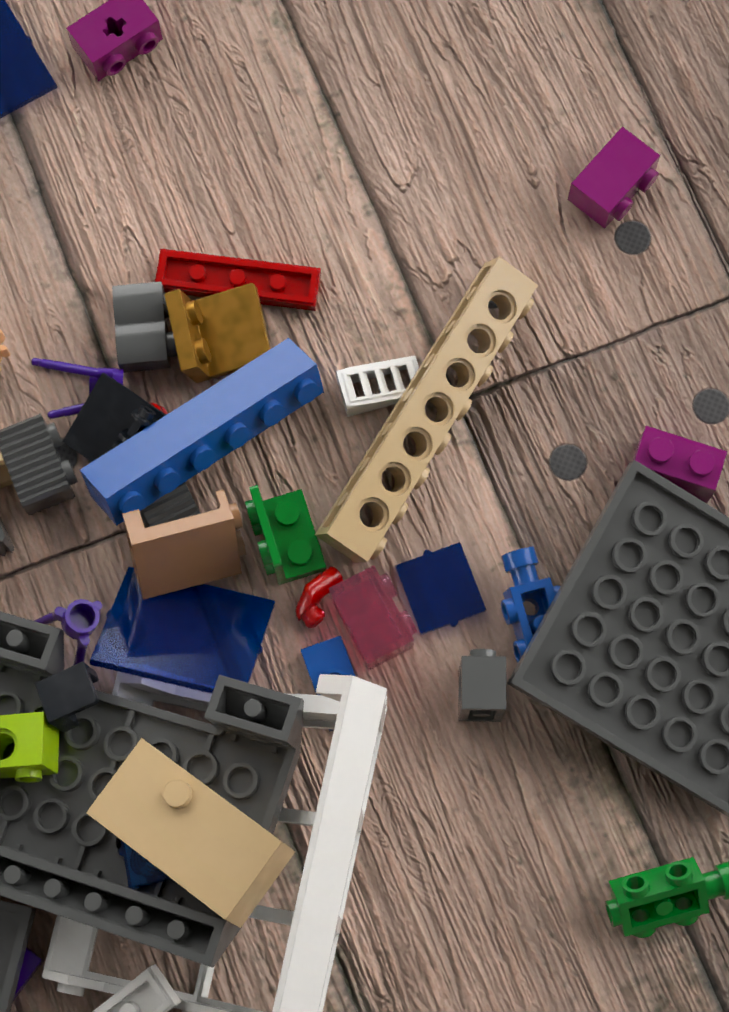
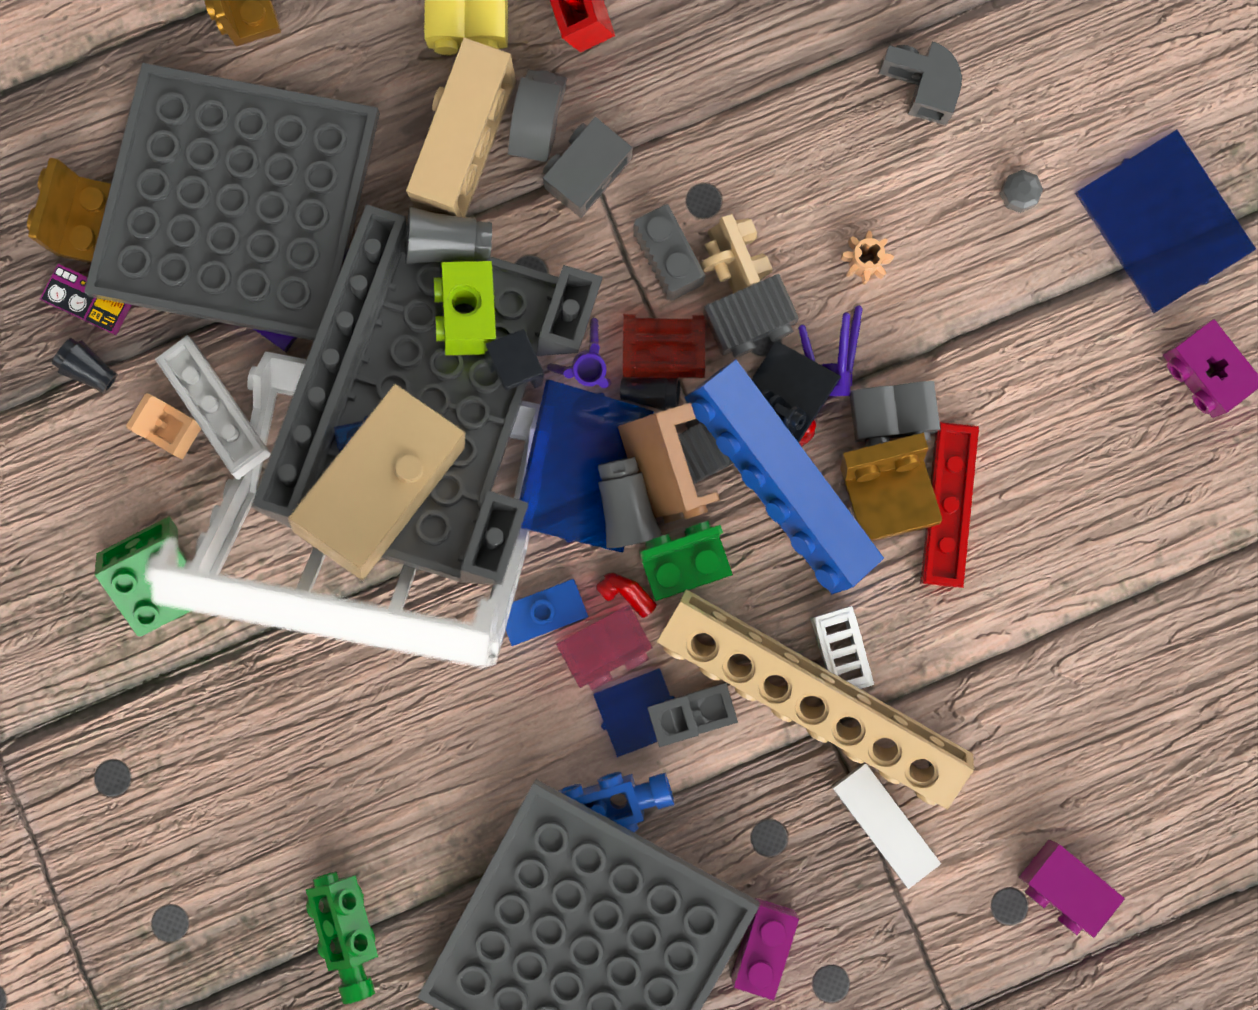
camera: 85 degrees right, 10 degrees up
(70, 551) = (664, 355): none -> clear red plate
(107, 565) = (651, 392): none -> black cone
(224, 589) = (626, 504): none -> dark grey plant
(442, 531) = (692, 714): none -> dark grey slope
(482, 686) = (534, 755): dark grey brick -> none
(554, 348) = (886, 825): none -> white tile

